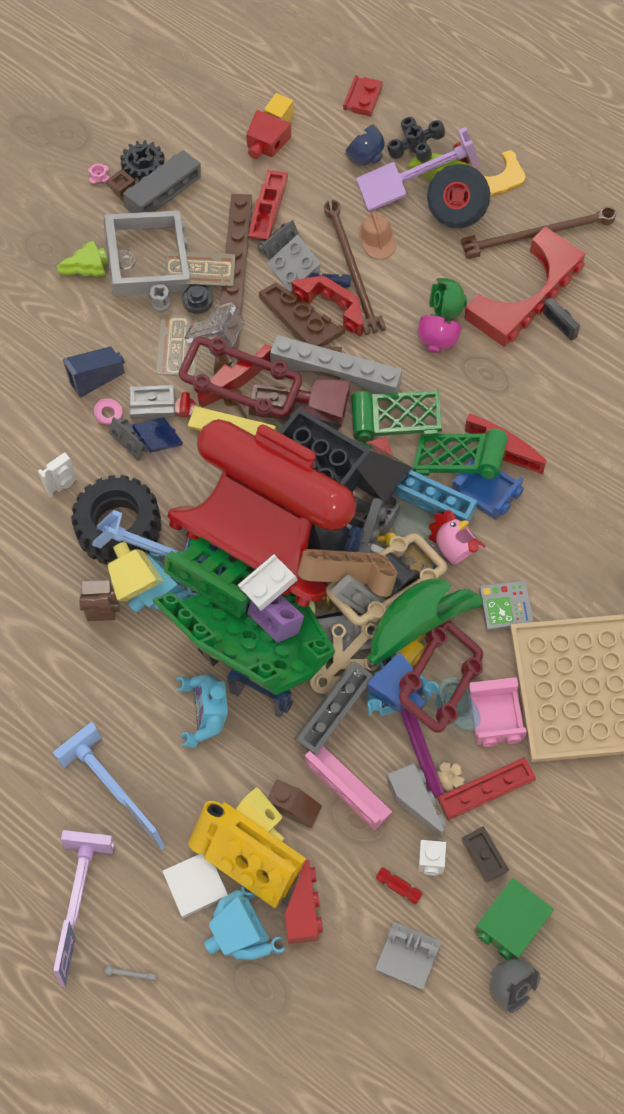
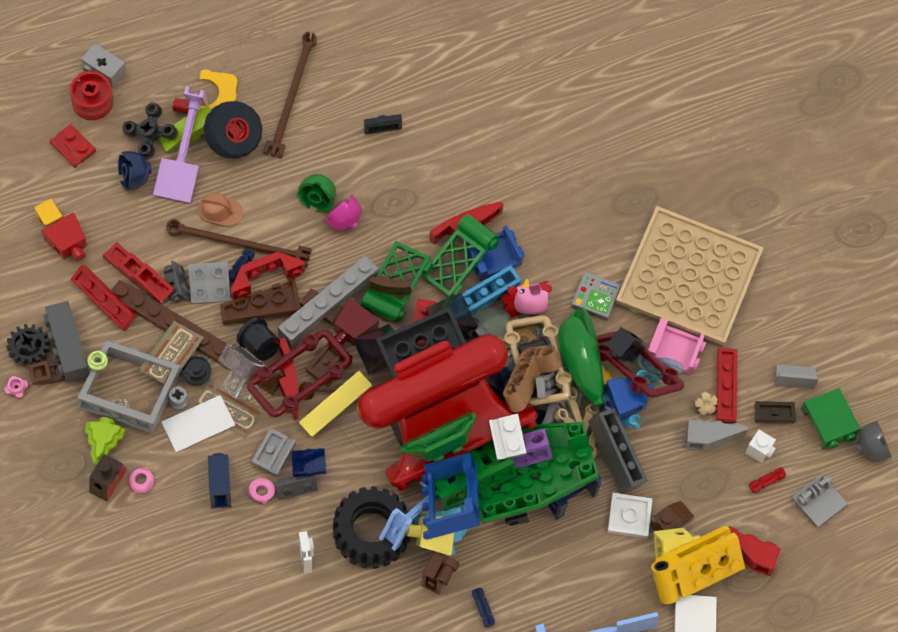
camera: 70 degrees left, 0 degrees up
(48, 280) = (108, 475): none -> dark brown torso
(64, 319) = (141, 488): none -> bright pink piece
(92, 667) = (483, 607): none -> dark blue axle
(148, 329) = (198, 423): none -> white sticker
(150, 210) = (97, 355): none -> yellowish green plate
(152, 578) = (458, 521): none -> blue hinge
(185, 405) = (292, 429): red plate -> none
(209, 707) = (567, 535): medium azure torso -> none
(225, 192) = (103, 297): none -> red tile
(226, 522) = (441, 439): none -> green wedge
(238, 929) = (747, 600): medium azure torso -> none
(256, 326) = (258, 339): none -> black piece
(274, 759) = (629, 515): none -> white tile
(348, 787) = (680, 475): bright pink fence -> none
(382, 405) = (383, 285): none -> reddish brown slope
(419, 79) = (91, 95): none -> red wheel
(422, 753) = (678, 412): magenta axle -> none
(454, 653) = (626, 345): none -> black brick
(458, 74) = (103, 62): none -> light grey brick
(505, 320) = (332, 96): arch -> none
(544, 857) = (795, 376): none -> light grey panel

